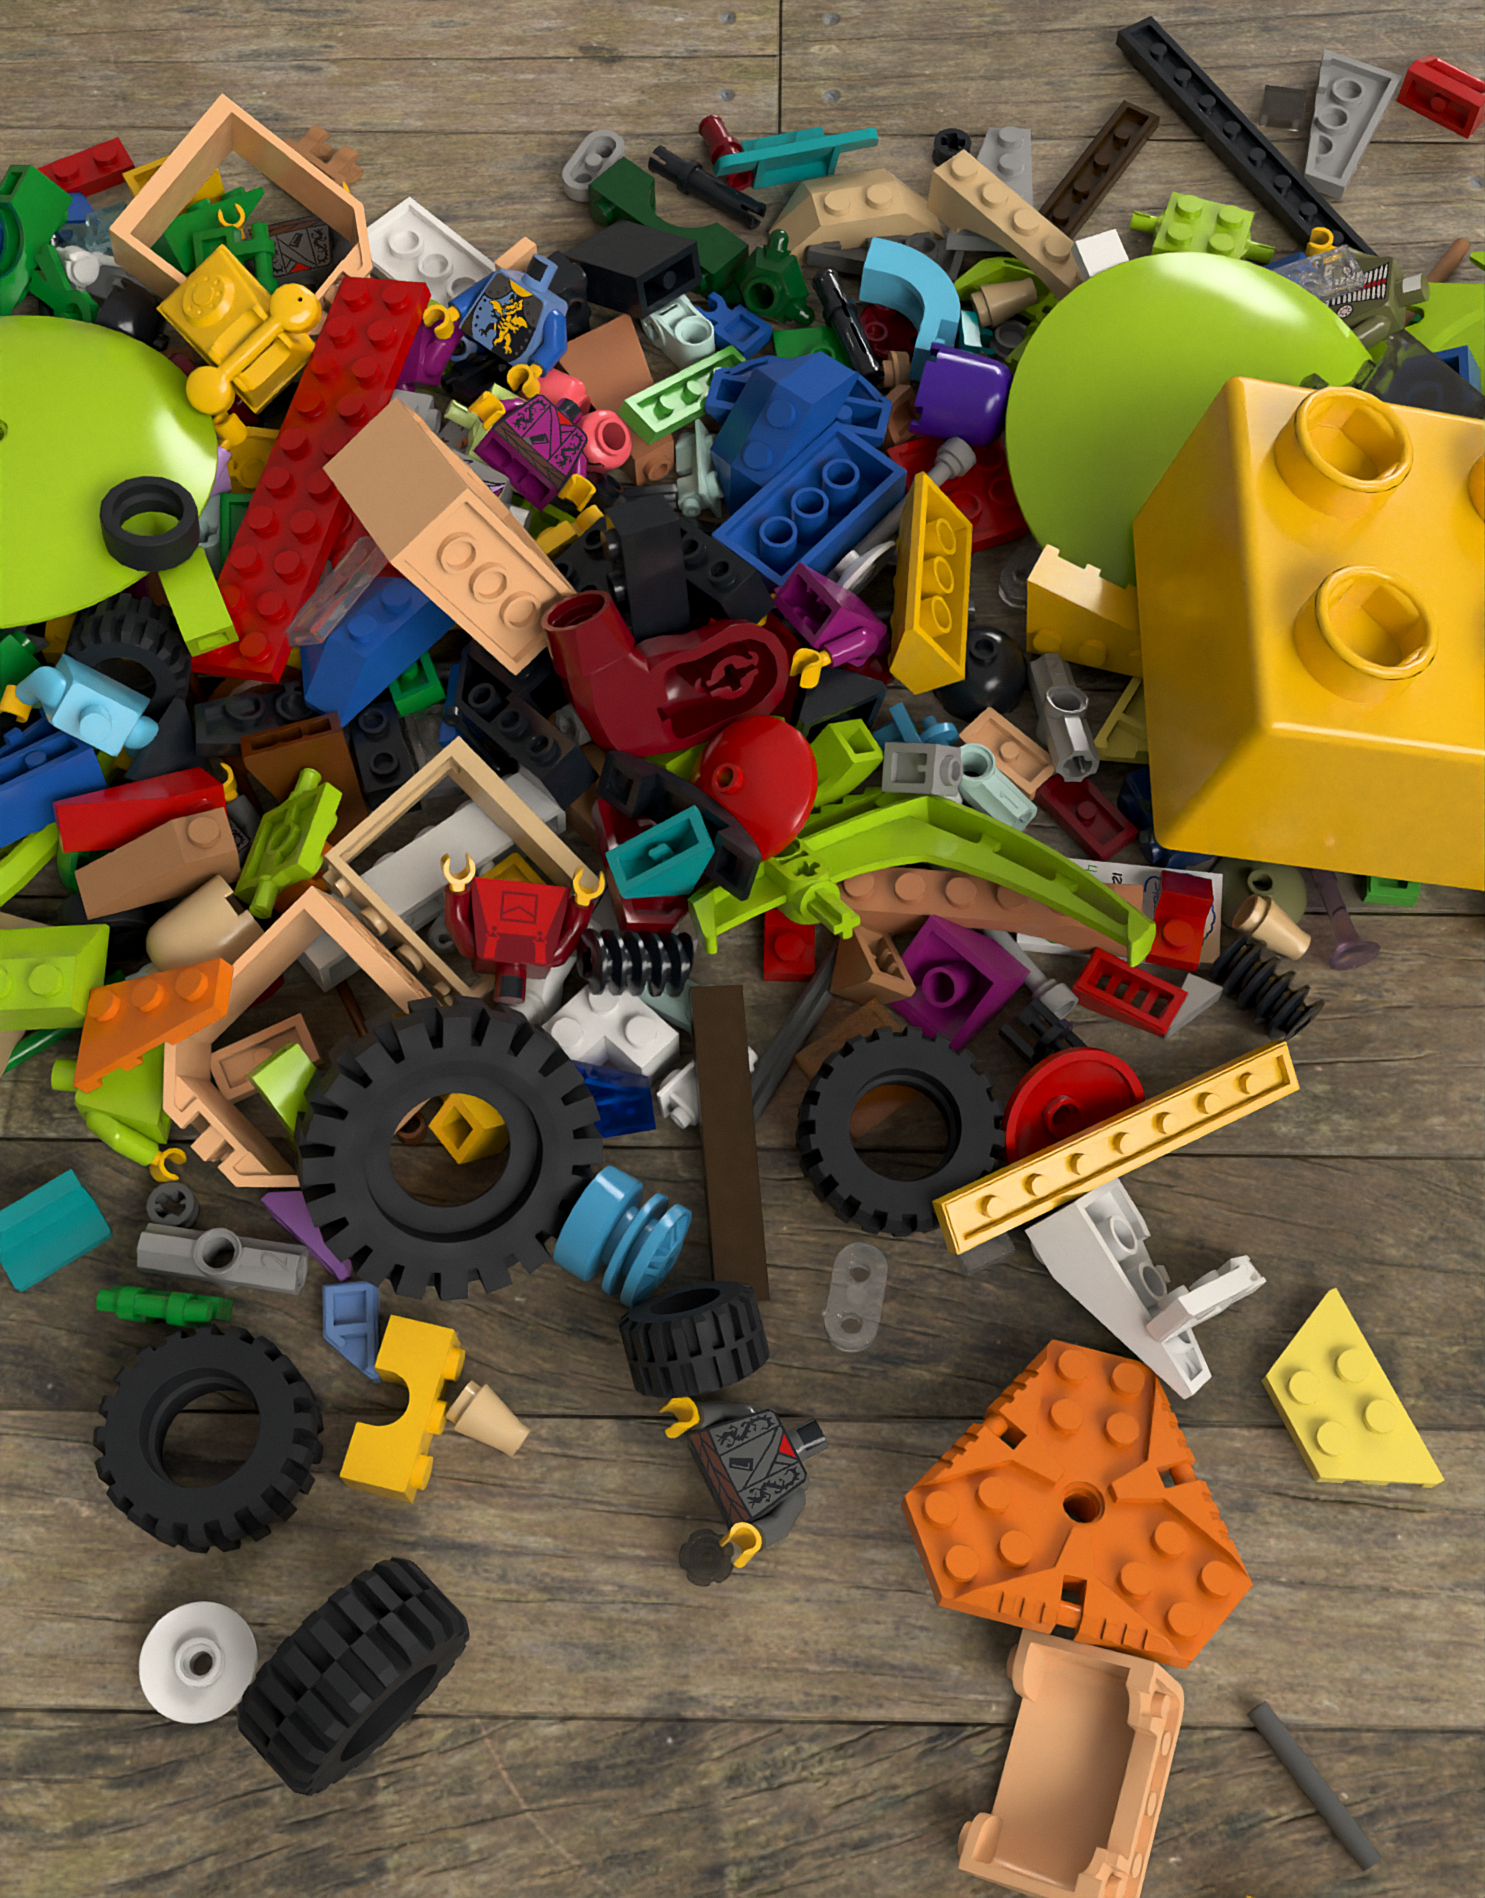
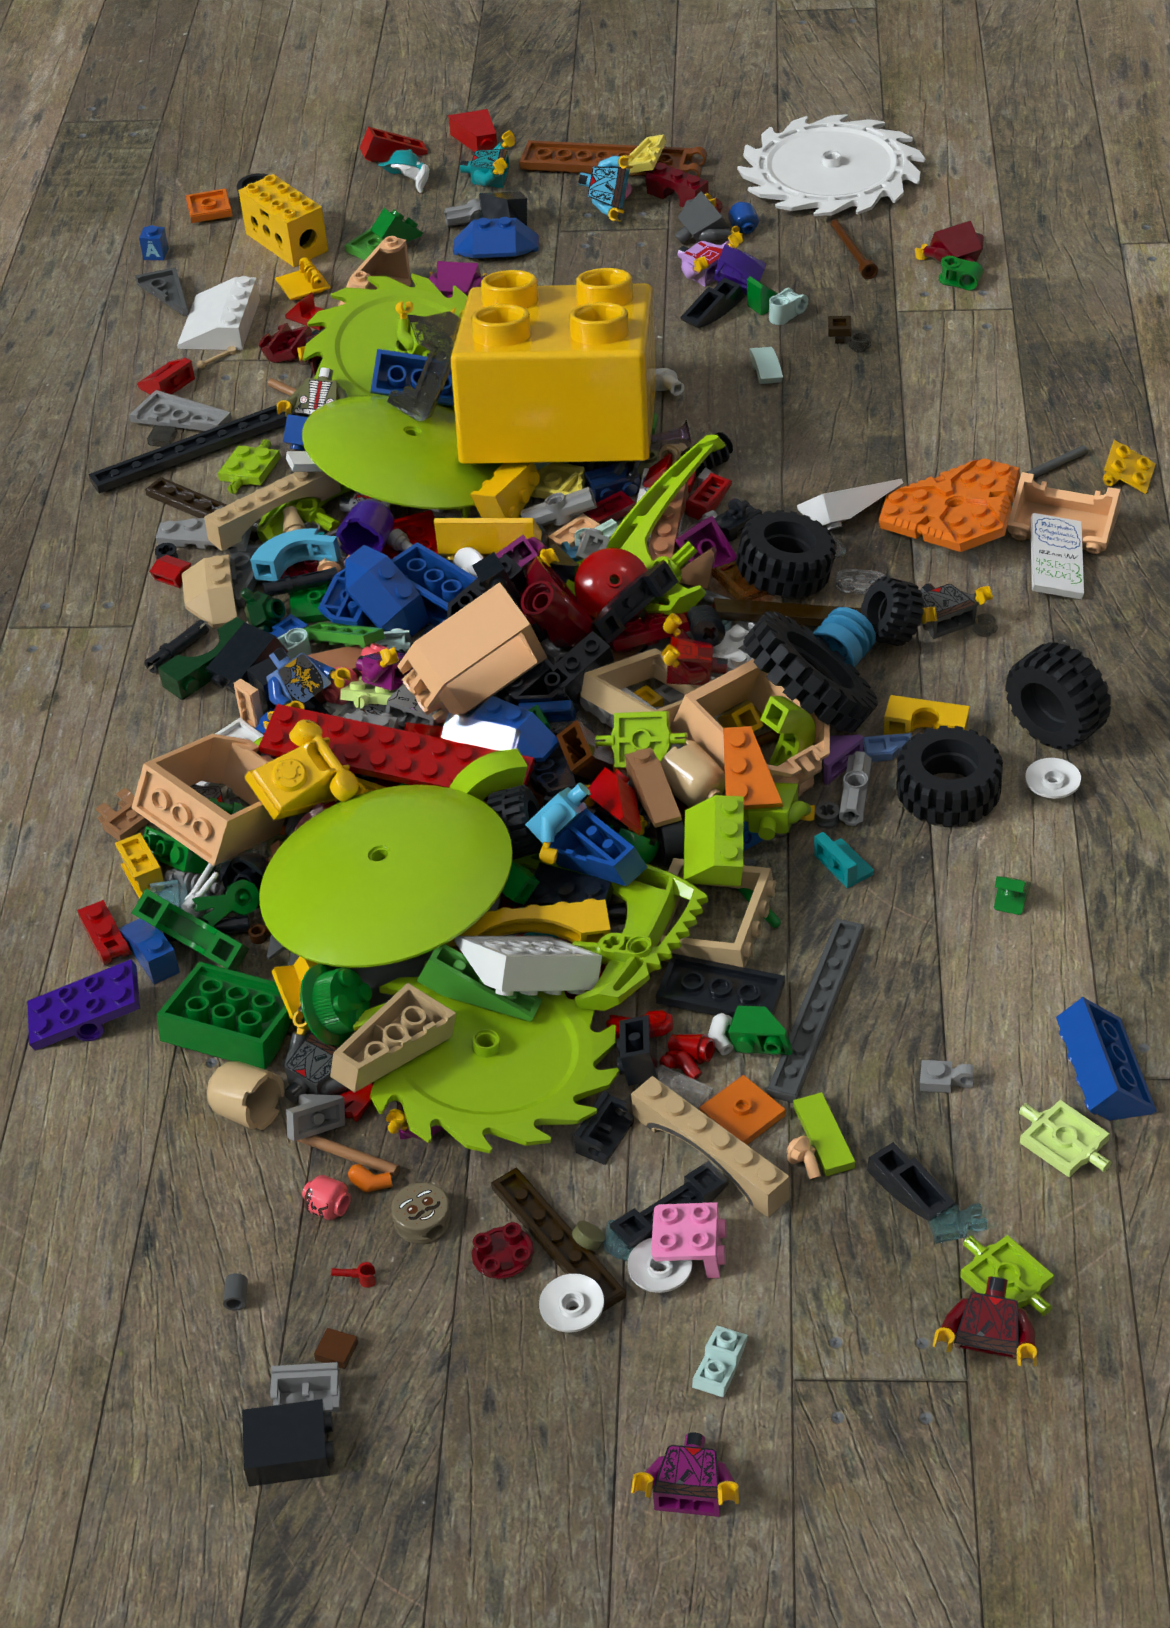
camera: 85 degrees left, 20 degrees down
(149, 495) = (451, 765): black tyre -> none
(149, 1305) = (884, 798): green plate -> none
(487, 1419) = (930, 691): tan cone -> none
(589, 161) = (150, 692): light grey plate -> none
(664, 858) = (650, 605): teal slope -> none
(722, 144) = (151, 639): dark red pin -> none
(793, 155) = (166, 614): teal plate -> none
(900, 152) = (169, 570): none -> red piece
(929, 1743) = (1056, 556): none -> white tile
(1079, 1081) = (768, 499): red dish -> none
(1114, 1147) = (790, 490): yellow tile -> none
(1206, 1298) = (859, 471): white hinge -> none
(1326, 273) = (309, 400): clear plate -> none
(1344, 1405) = (896, 449): light yellow wing -> none

